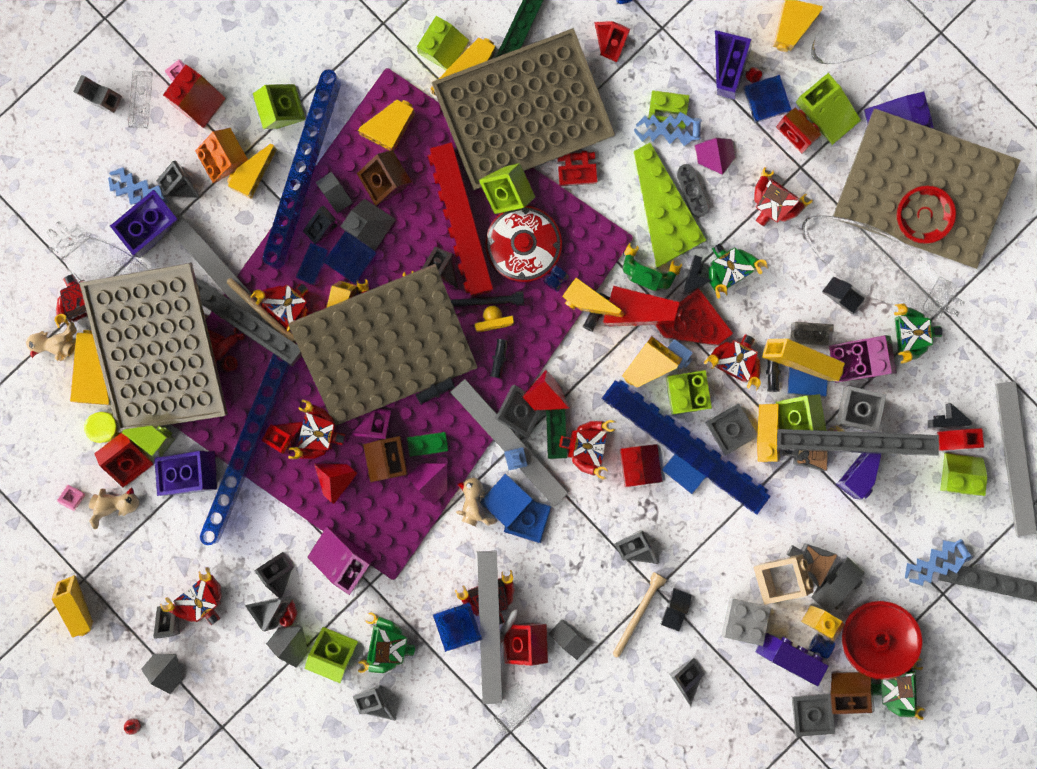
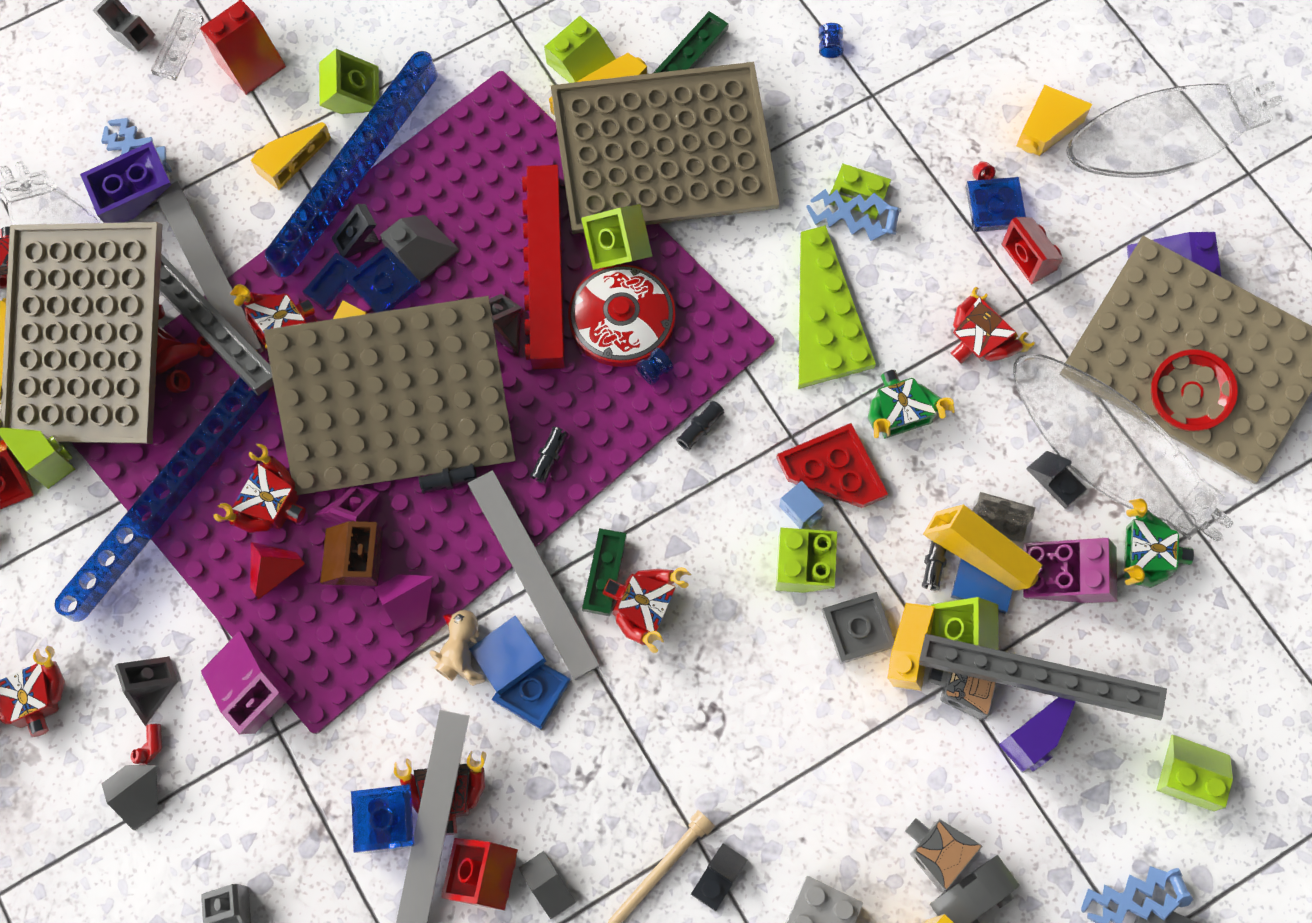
camera: 15 degrees right, 15 degrees down
(176, 182) = (188, 146): dark grey slope -> none
(186, 473) = (71, 514): dark purple slope -> none
(221, 154) = (255, 123): orange slope -> none
(260, 310) = (238, 315): tan piece -> none
(269, 612) = (118, 734): dark grey slope -> none
(282, 436) = (214, 491): red slope -> none
(331, 655) = (187, 821): lime slope -> none
(334, 192) = (387, 200): dark grey slope -> none
(383, 177) = (457, 191): reddish brown slope -> none
(386, 646) = (271, 827): torso -> none
(388, 125) = (482, 131): yellow slope -> none
(427, 444) = (416, 550): green plate -> none
(493, 320) = (553, 403): yellow tile -> none
(508, 623) = (459, 837): light grey piece -> none
(515, 458) = (535, 596): medium blue tile -> none
(516, 299) = (593, 381): black piece -> none
(517, 412) = (559, 532): dark grey plate -> none
(546, 394) = (601, 517): red slope -> none
(577, 174) = (718, 244): red plate -> none
(587, 300) = (693, 402): yellow slope -> none
(611, 38) = (804, 91): red slope -> none
(636, 548) = (680, 769): dark grey slope -> none
(640, 465) = (714, 648): red slope -> none
(642, 309) = (762, 431): red slope -> none
(648, 275) = (784, 389): green torso -> none
(651, 363) = (759, 504): yellow slope -> none
(682, 179) = (864, 308): dark grey beam -> none
(683, 474) = (784, 669): blue tile -> none
(686, 447) = (787, 639): clear blue brick -> none
(693, 281) = (848, 409): black slope -> none
(716, 154) = (912, 255): magenta slope -> none
(731, 60) = (955, 147): dark purple wedge -> none
(738, 360) = (886, 532): torso -> none
(766, 582) = (865, 870): tan window -> none
(828, 108) = (1079, 229): lime slope -> none
(861, 409) = (1056, 635): light grey brick -> none
(954, 417) = (1193, 686): black slope -> none
(961, 439) = (1199, 717): red slope -> none
(1015, 458) = (1279, 770): light grey tile -> none

